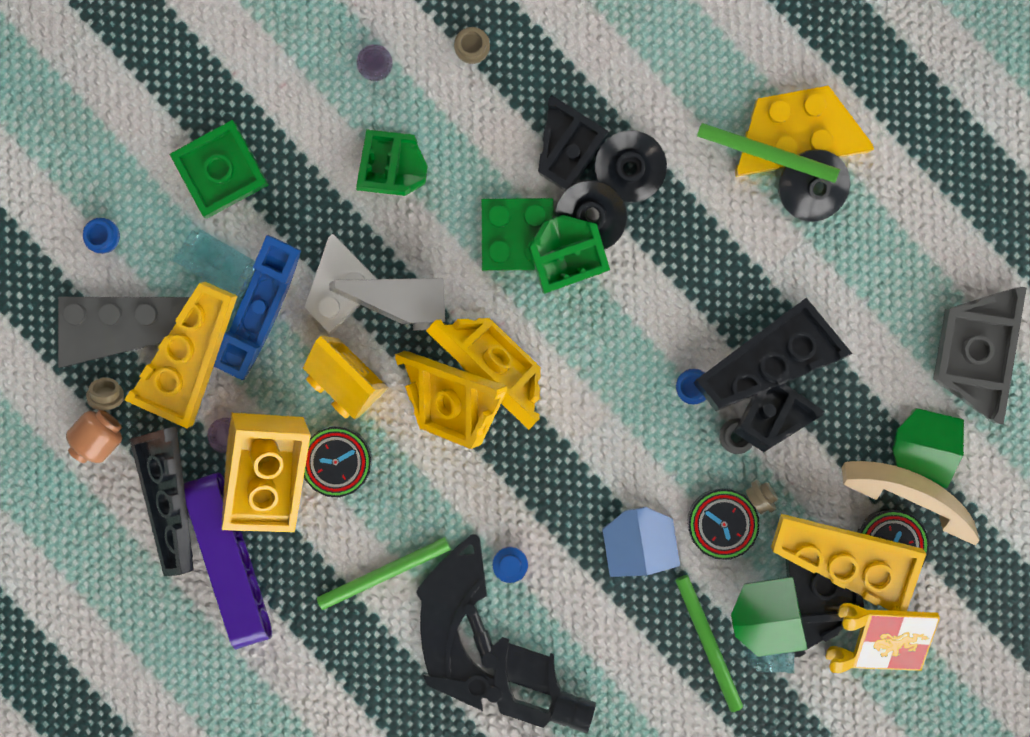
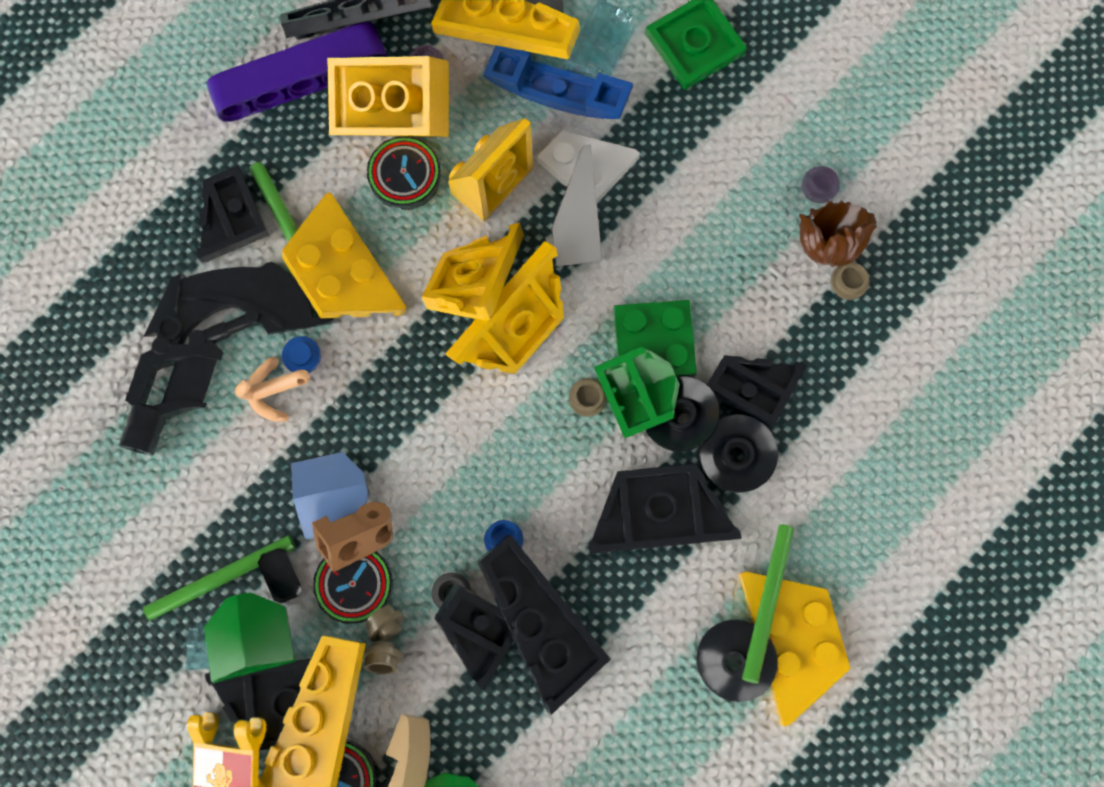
camera: 85 degrees right, 10 degrees down
(369, 629) = (228, 215): none -> black wing
(391, 164) = (716, 205): green slope -> none
(427, 527) = (338, 267): none -> yellow wing
(428, 53) = (836, 233): none -> reddish brown hair
(543, 606) = (255, 389): none -> light nougat piece
(567, 301) = (587, 397): none -> dark tan plate
(677, 242) = (661, 510): none -> black wing
(684, 521) = (353, 535): none -> medium nougat leg
(711, 589) = (279, 575): none -> black piece
(791, 500) = (382, 658): none -> dark tan plate

